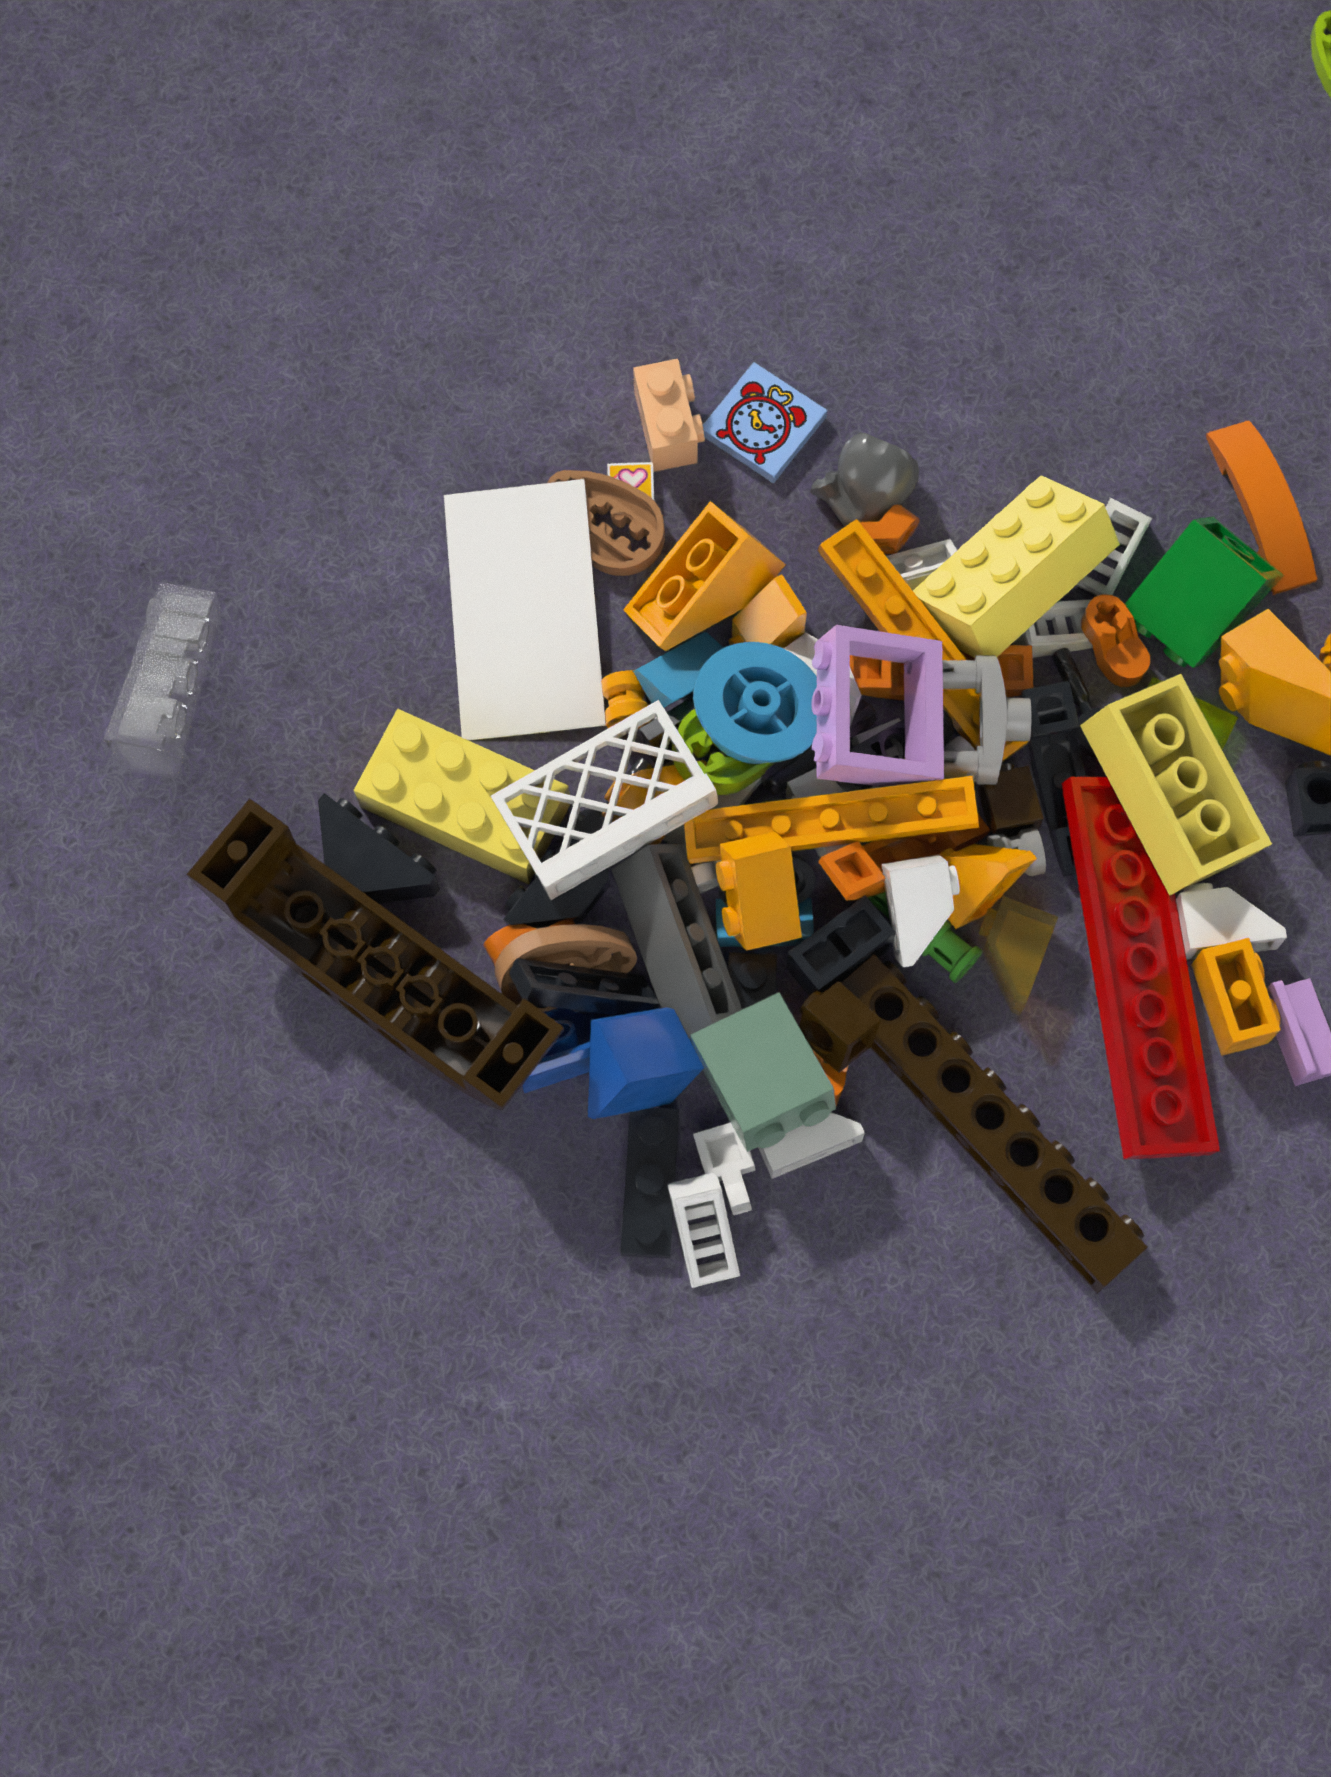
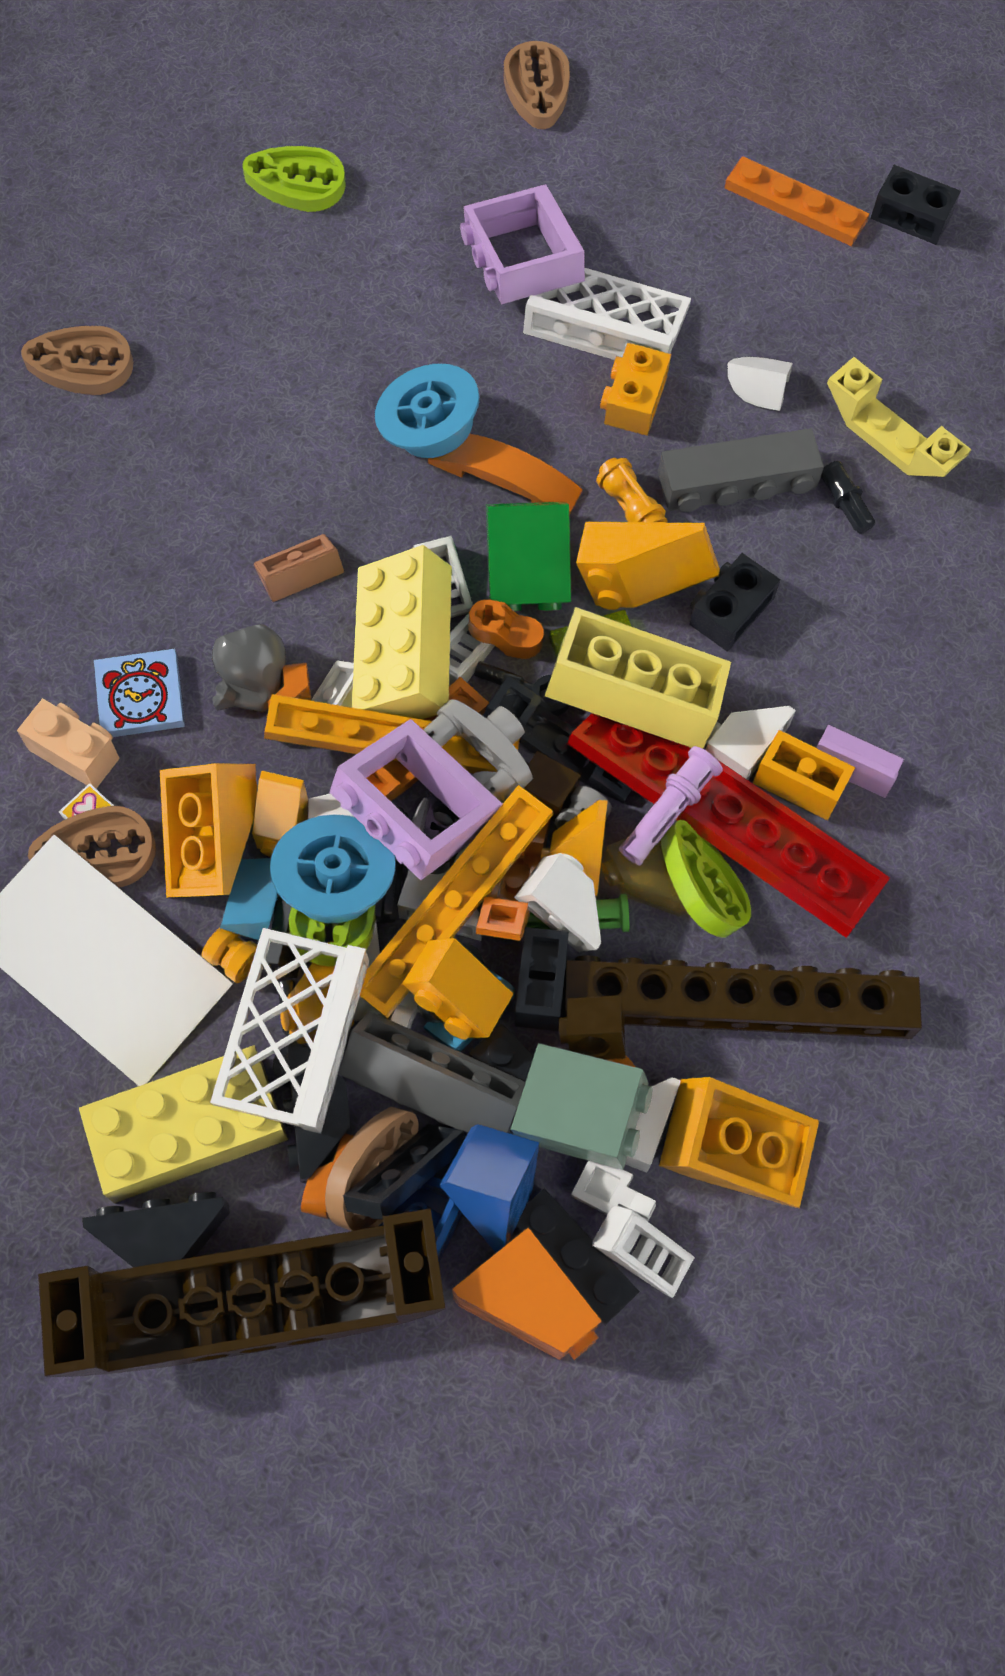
camera: 50 degrees left, 5 degrees down
(581, 1172) = (530, 1299): none -> orange slope
(866, 1228) = (739, 1141): none -> light orange slope
(985, 101) = (81, 377): none -> medium nougat piece
(999, 431) = (299, 567): none -> nougat slope
(1051, 974) = (704, 881): none -> lime piece
(1107, 909) = (681, 791): none -> lavender pin
(1246, 388) = (428, 410): none -> dark azure piece

